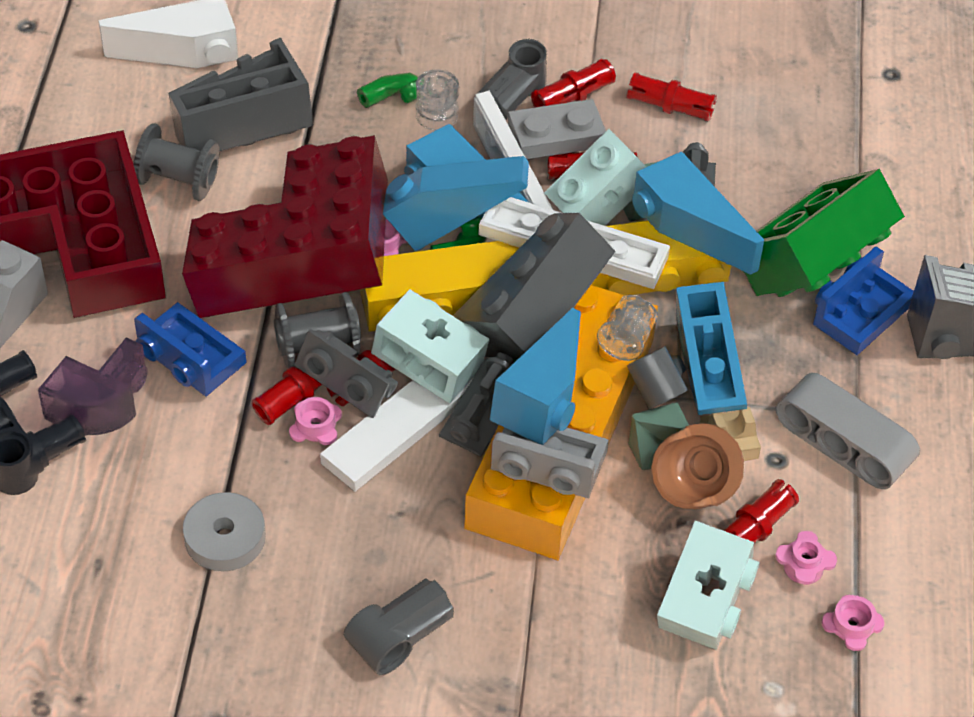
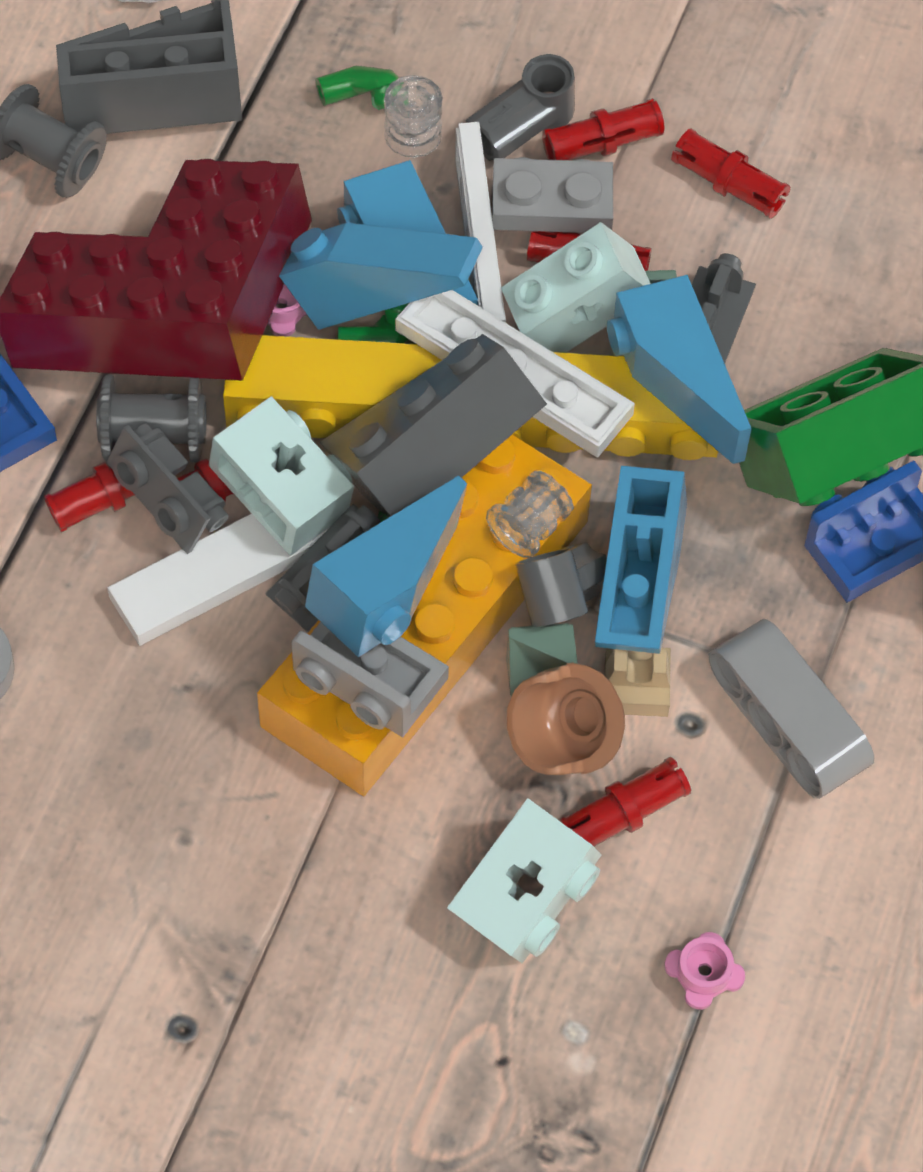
camera: 15 degrees right, 10 degrees up
(315, 410) = (111, 526): bright pink plate -> none
(388, 633) = (114, 848): dark grey piece -> none
(801, 569) = (674, 888): bright pink plate -> none

